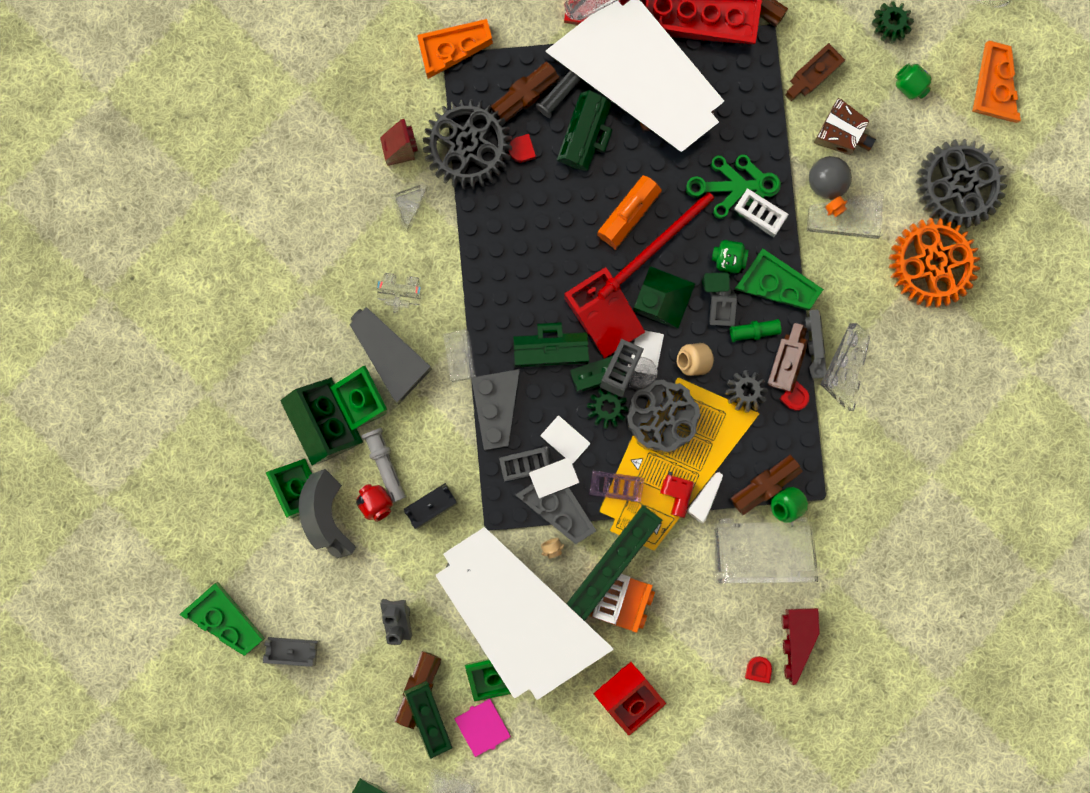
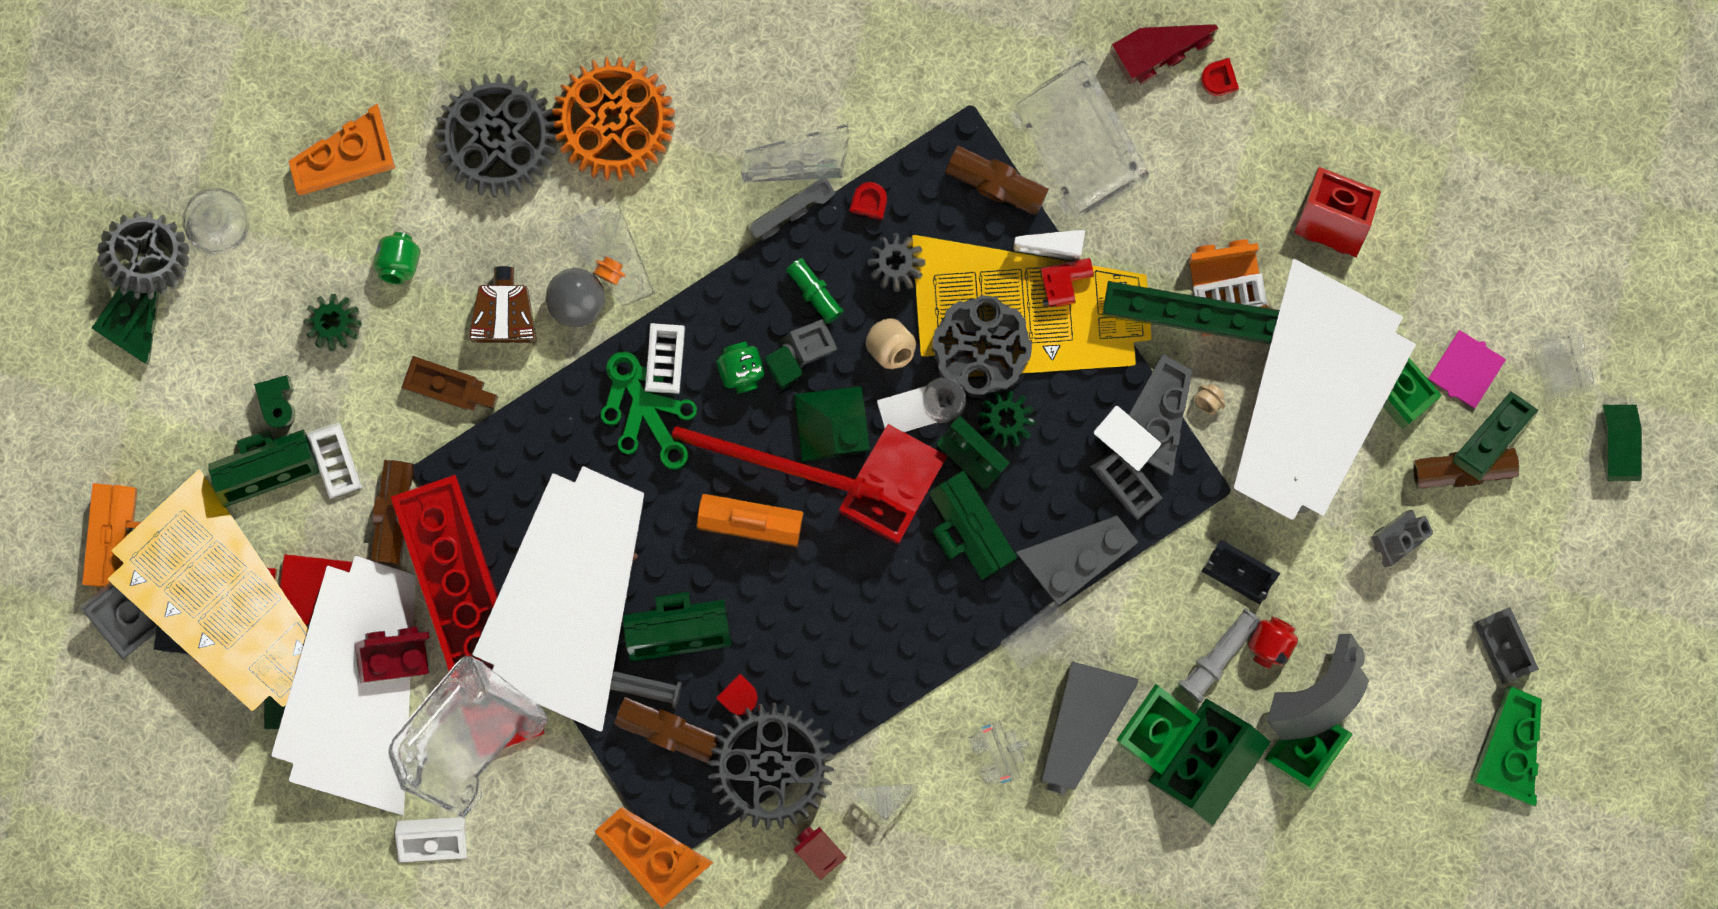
camera: 120 degrees left, 0 degrees up
(565, 439) = (1070, 452): white sticker -> none
(613, 386) = (983, 419): dark grey slope -> none
(637, 492) = (1102, 342): slope -> none
(778, 282) = (740, 295): green wing -> none
(789, 359) = (829, 231): hinge -> none
(789, 505) = (1007, 140): green head -> none

